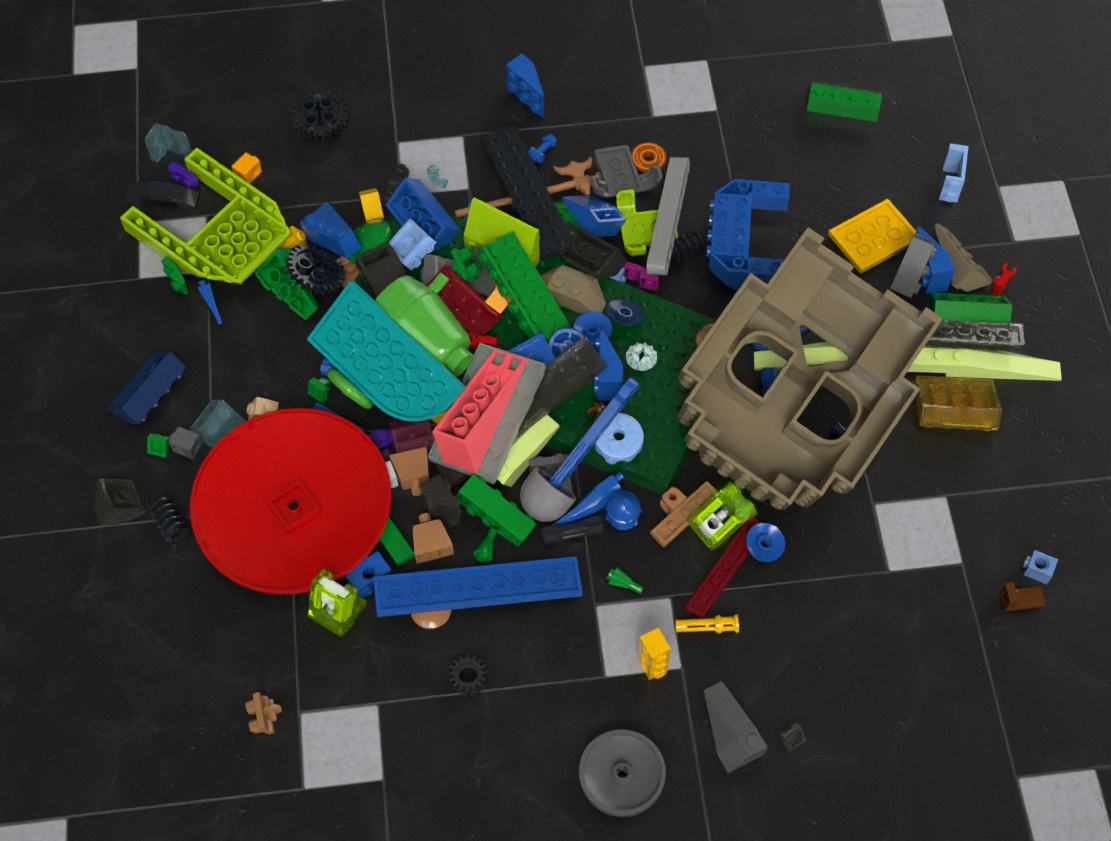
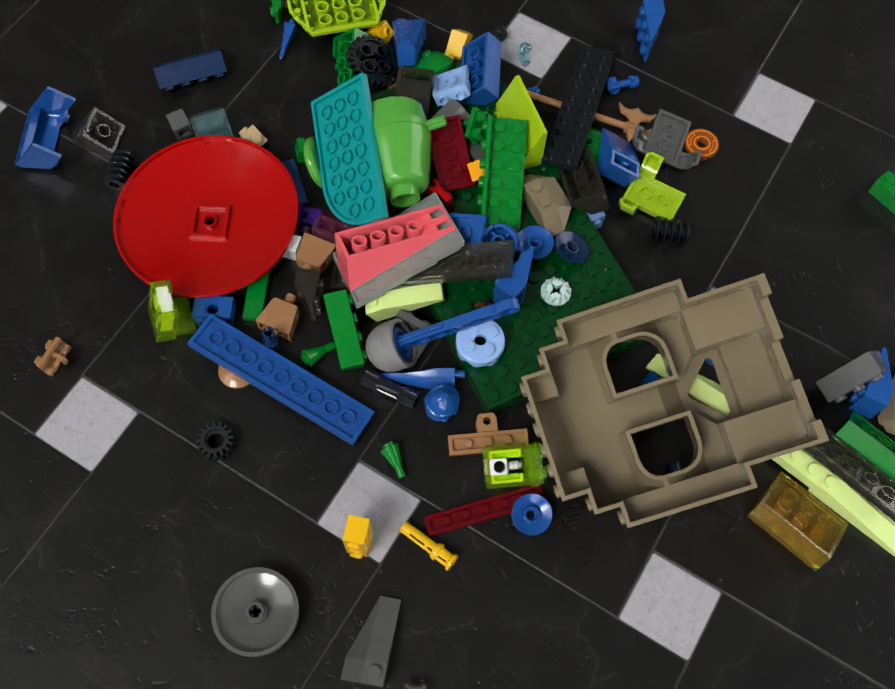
camera: 35 degrees right, 5 degrees up
(57, 540) = (42, 130): none -> blue windscreen
(158, 445) = (159, 113): green tile -> none
(442, 559) = (270, 339): none -> dark blue pin
(637, 272) = (618, 234): magenta slope -> none
(668, 216) = (674, 197): light grey beam -> none
(732, 229) = (720, 236): blue wedge -> none
(873, 235) = (840, 328): yellow plate -> none

